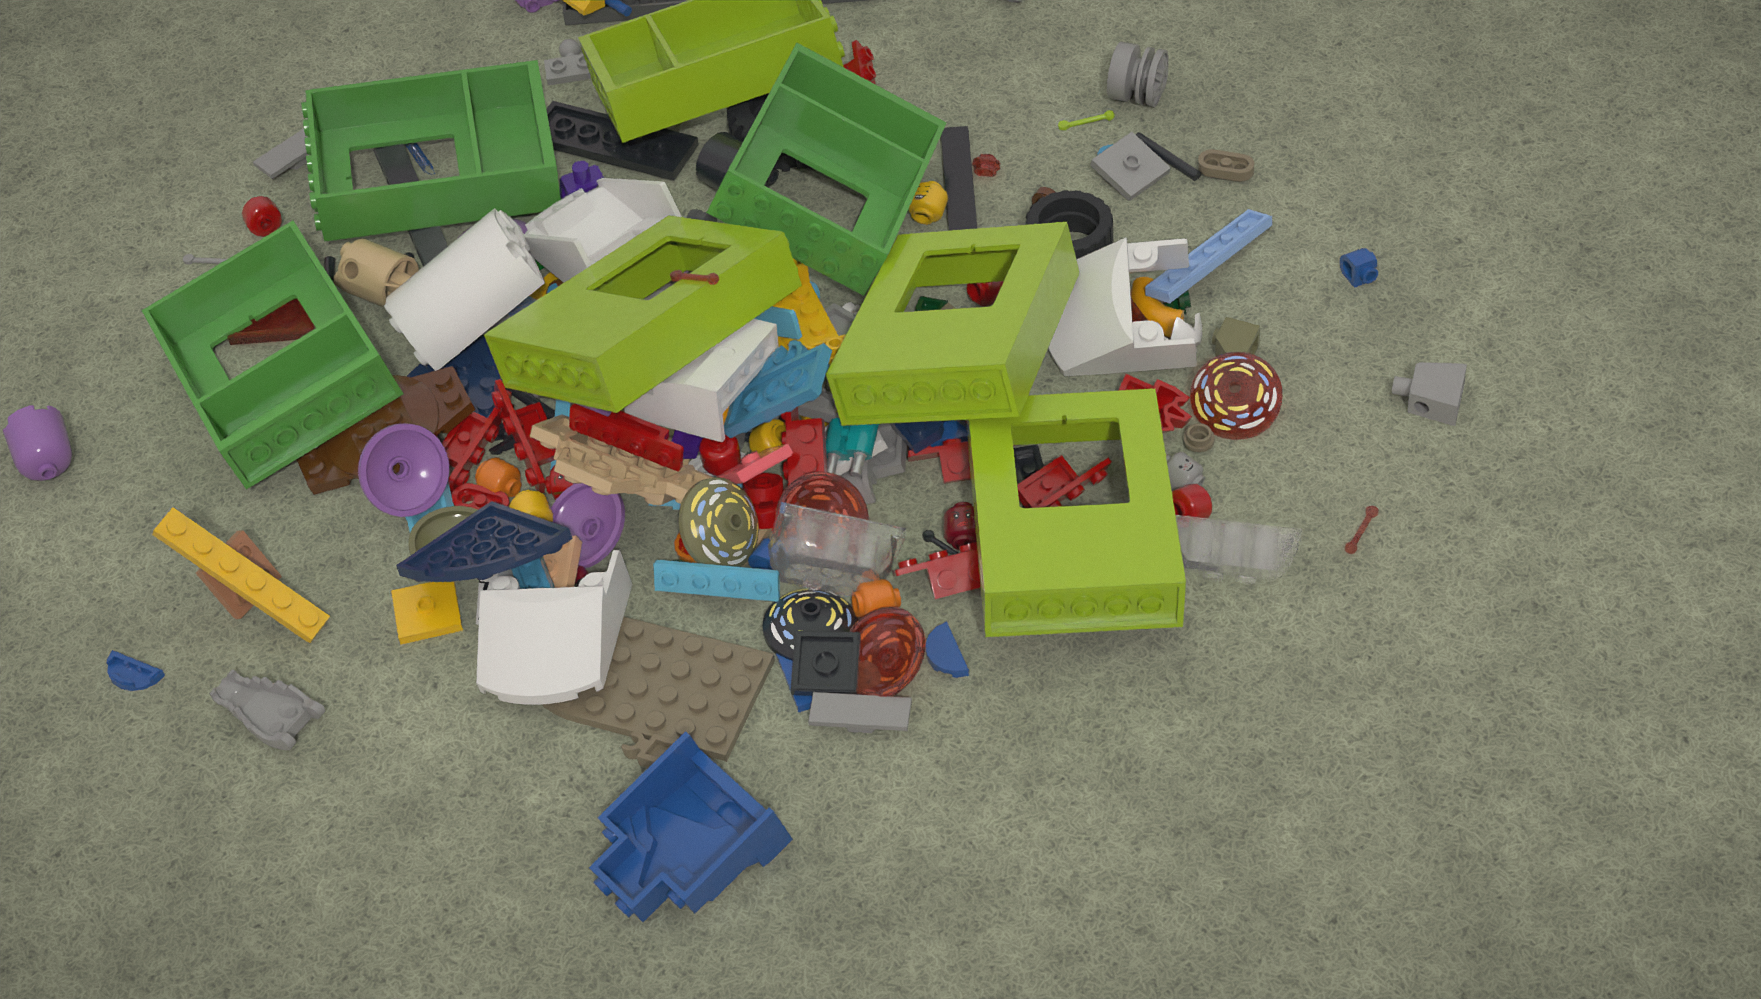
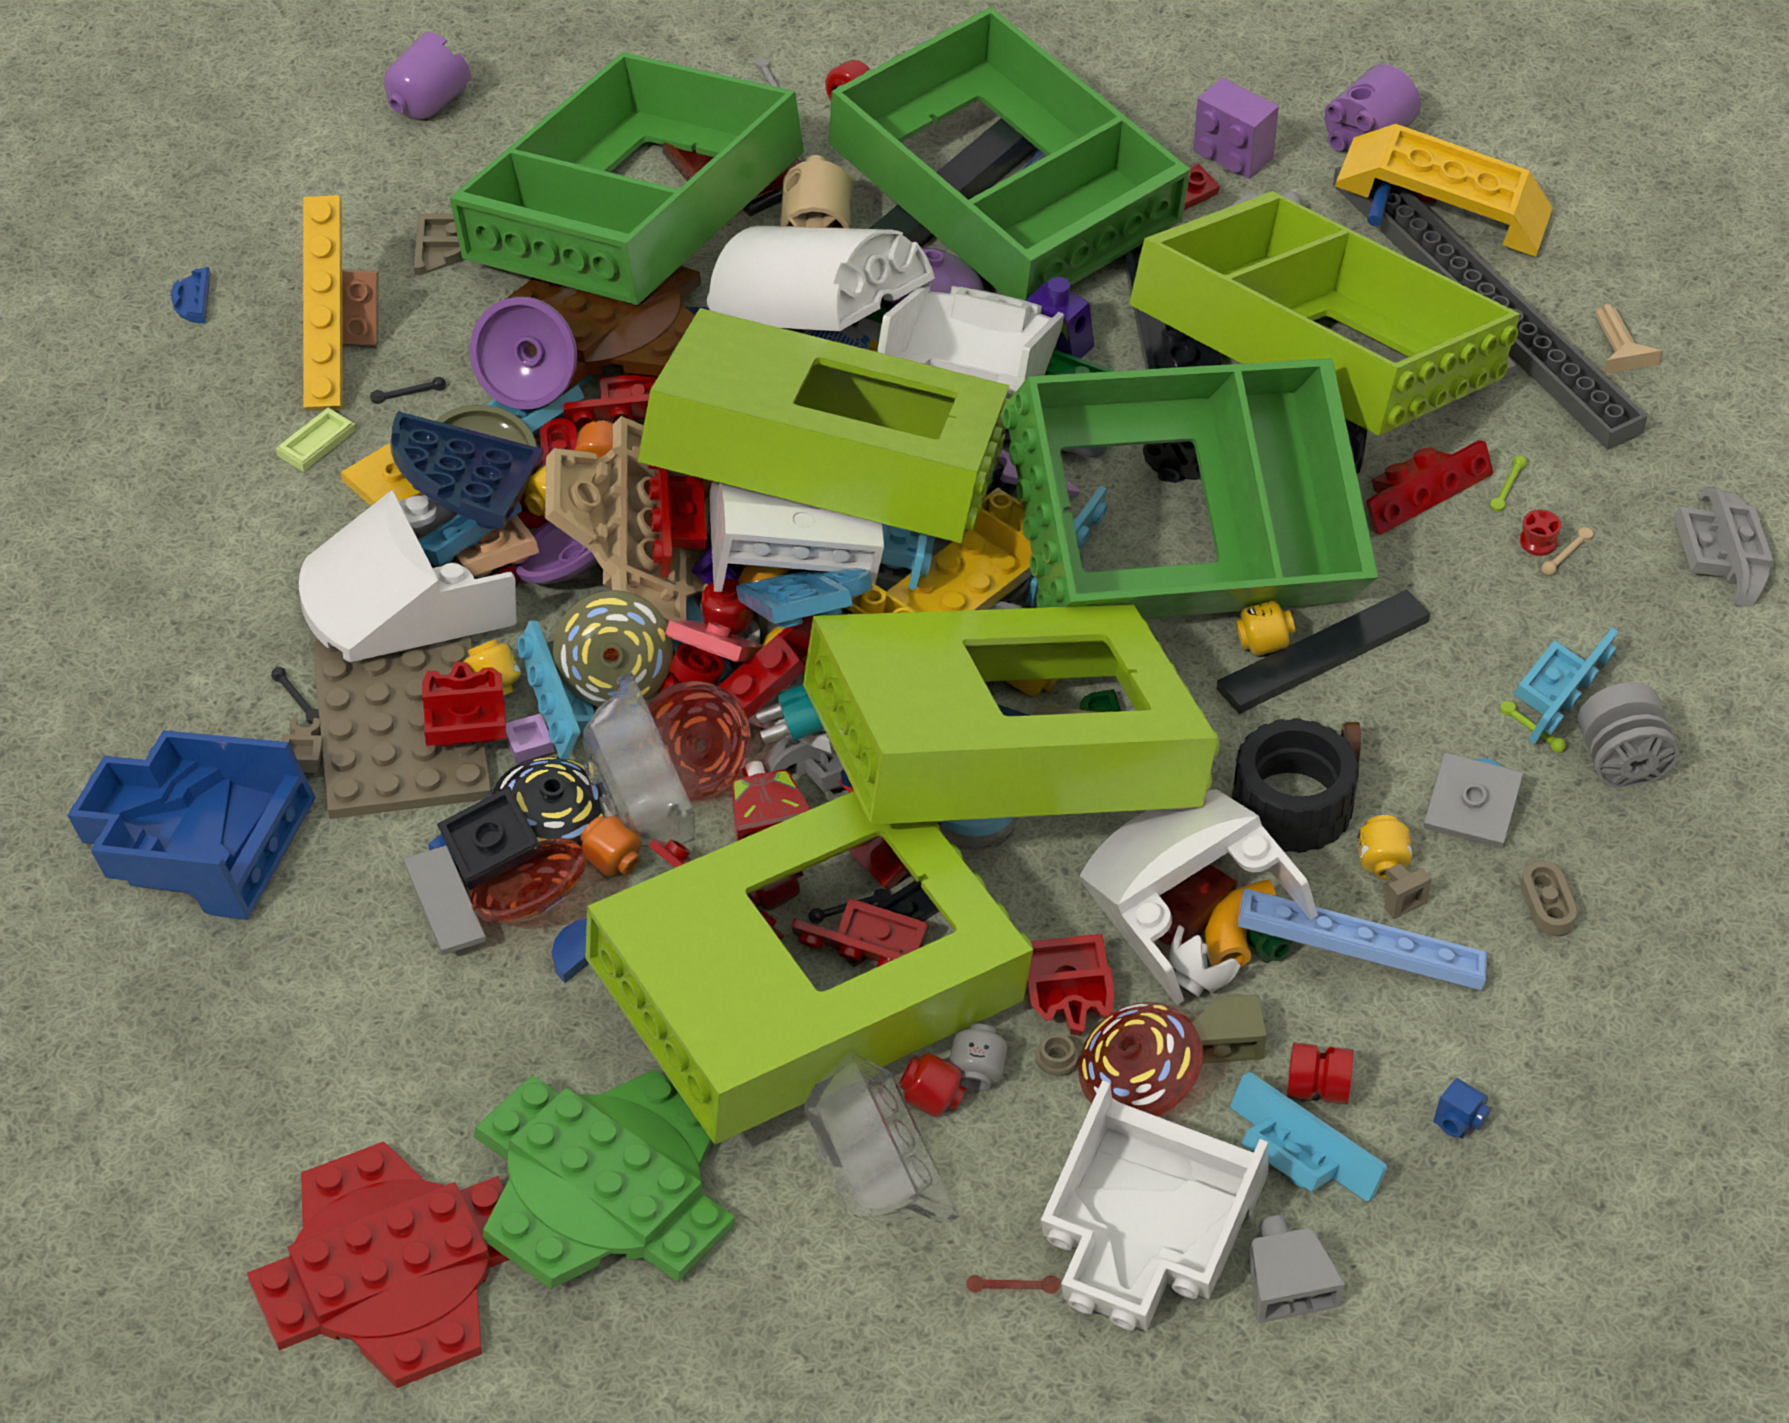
camera: 55 degrees right, 0 degrees up
(212, 494) = (436, 242): none -> dark tan wing
(266, 708) = (192, 414): light grey animal -> none
(334, 593) = (379, 396): none -> black hinge
(348, 645) = (315, 439): none -> yellowish green tile
(489, 37) = (1235, 128): none -> medium lavender brick
(622, 738) = (279, 675): none -> black hinge
(667, 609) = (497, 656): none -> yellow head
(699, 632) = (463, 706): none -> red plate
(712, 278) = (849, 411): clear red hinge -> none
(741, 615) = (528, 738): none -> lavender plate
(897, 62) = (1498, 504): none -> lime hinge
(902, 503) = (764, 799): none -> red torso
(940, 51) = (1540, 532): none -> red wheel
(952, 36) = (1584, 535): none -> tan hinge
(986, 165) = (1372, 658): clear red plate -> none
(1068, 89) = (1556, 680): none -> medium azure bracket
(1140, 219) = (1384, 844): none -> yellow head
(1153, 856) = (384, 1265): none -> red plate
(1159, 706) = (600, 1179): none -> bright green plate
(1171, 159) = (1526, 833): black bar -> none
(1179, 223) = (1405, 890): none -> dark tan tile
(1297, 316) = (1320, 1073): none -> red wheel
(1340, 347) = (1302, 1143): none -> medium azure bracket
(1357, 432) = (1147, 1210): none -> white panel

